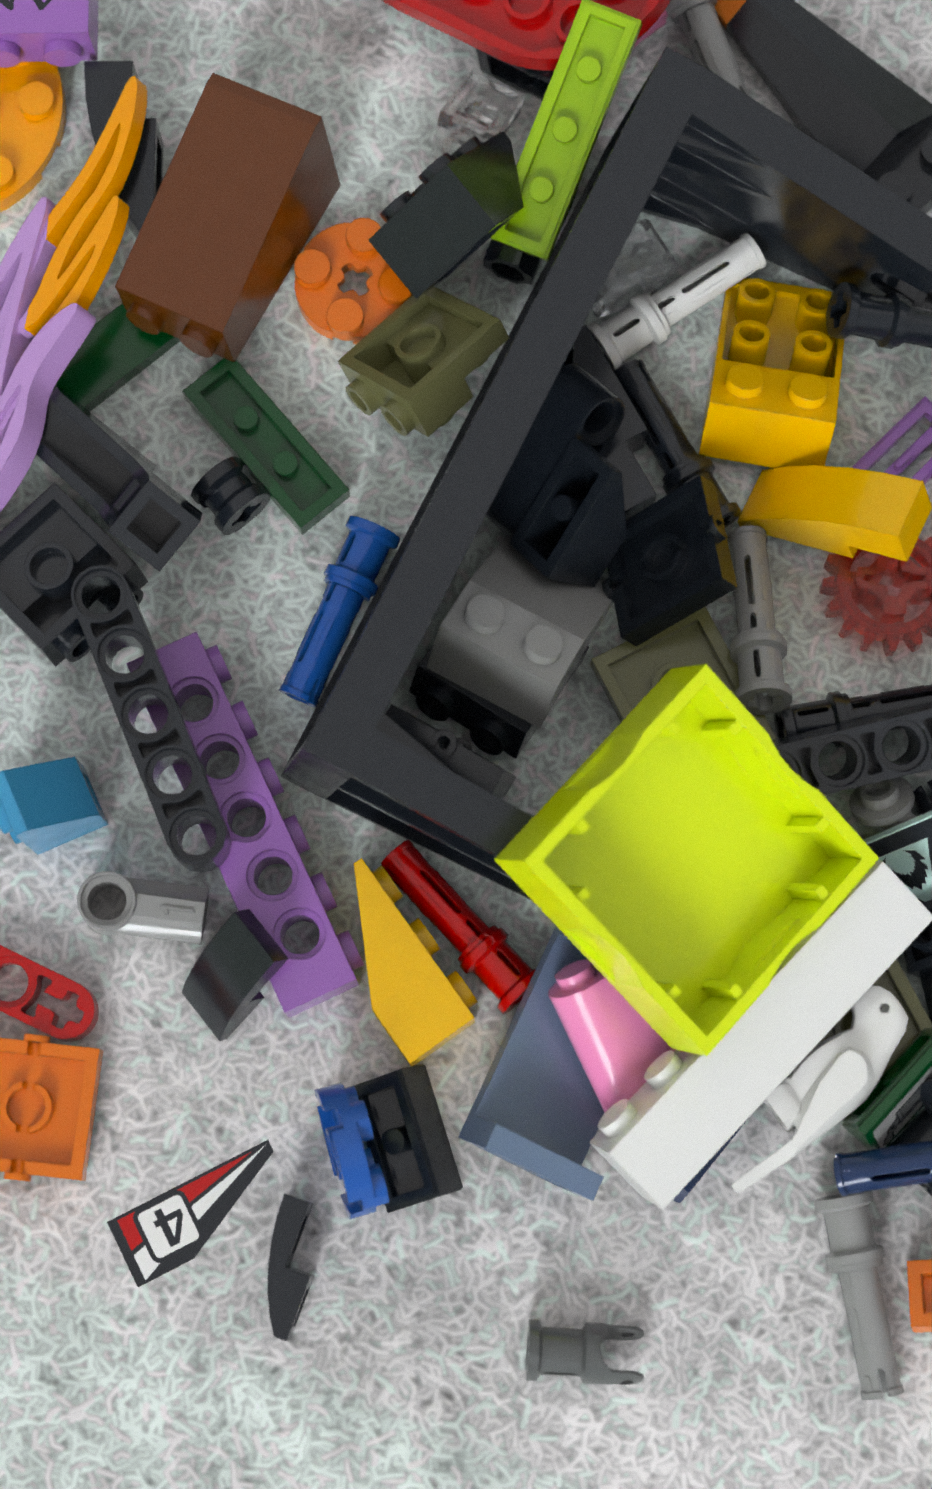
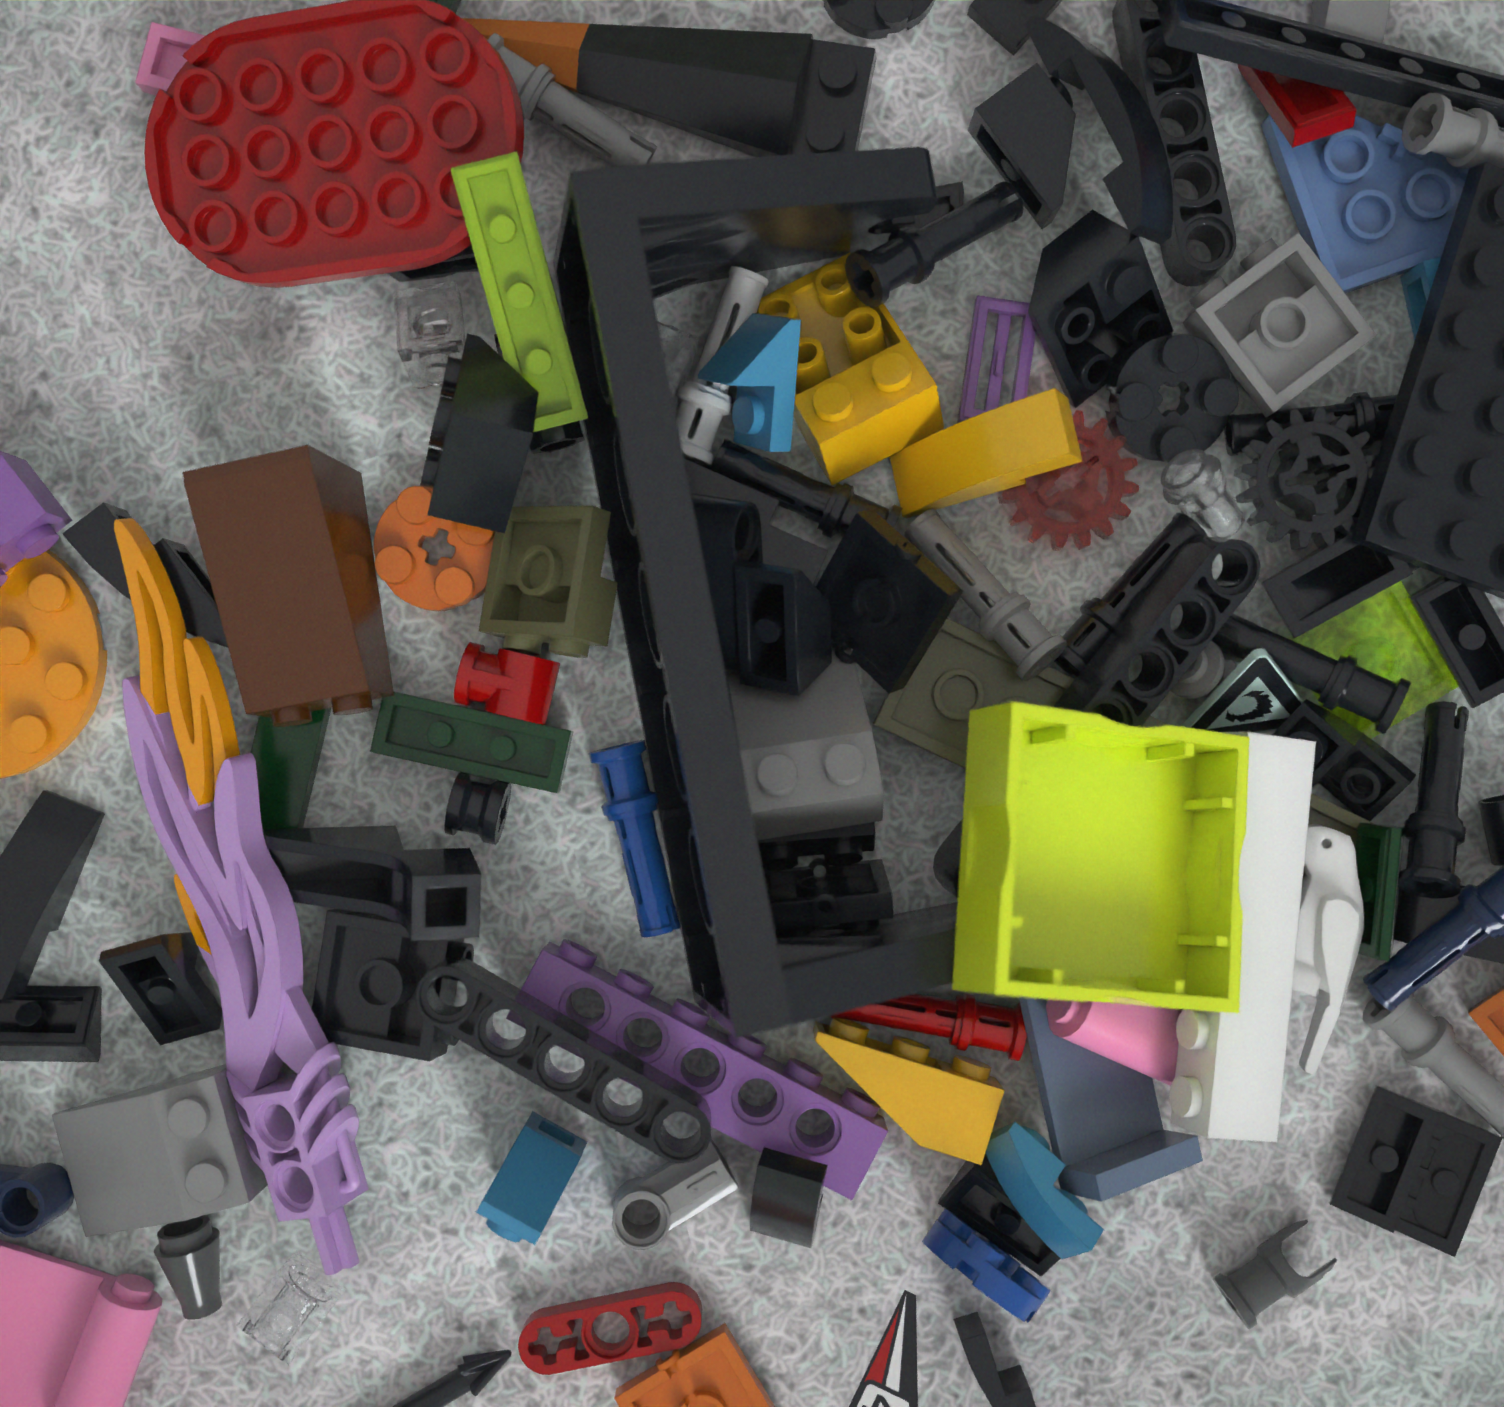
camera: 35 degrees left, 10 degrees up
(327, 417) = (506, 683): none -> red piece
(442, 1093) = (1027, 1176): none -> dark azure slope
(714, 319) = (763, 366): none -> dark azure slope
(766, 1361) = (1415, 1170): none -> black slope

